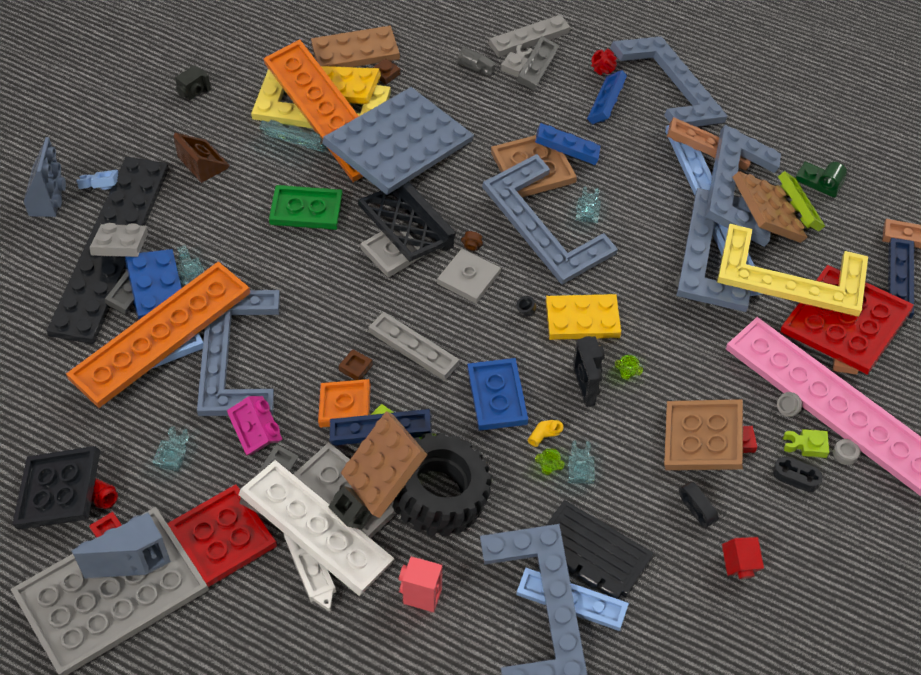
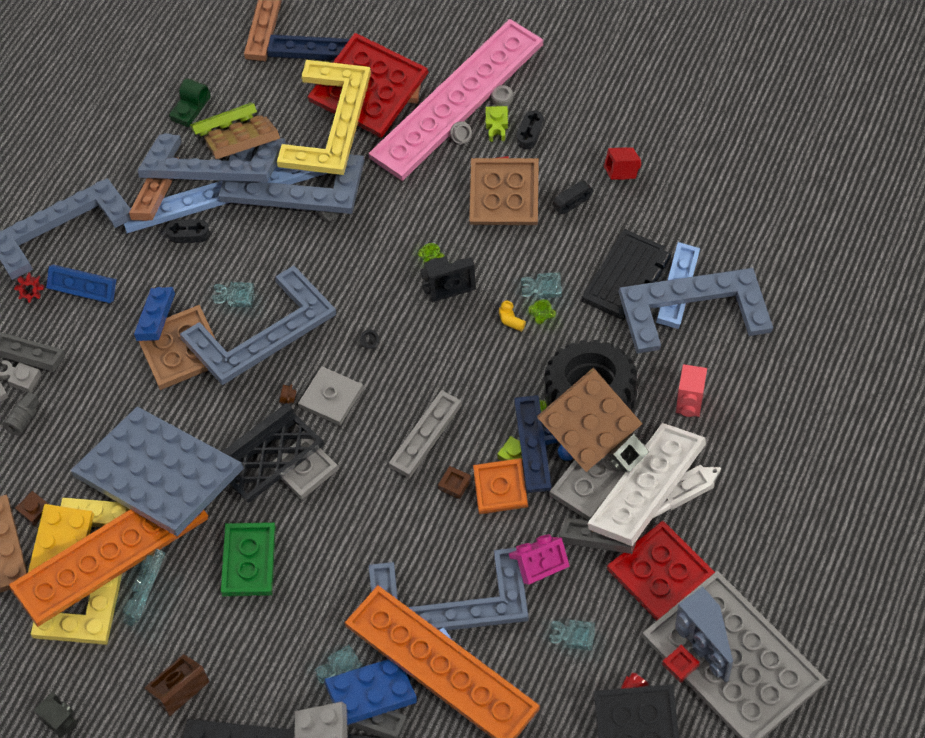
camera: 90 degrees left, 5 degrees up
(497, 394) = (474, 357): blue plate -> none
(583, 316) = (374, 295): yellow plate -> none
(661, 174) = (188, 231): none -> black beam

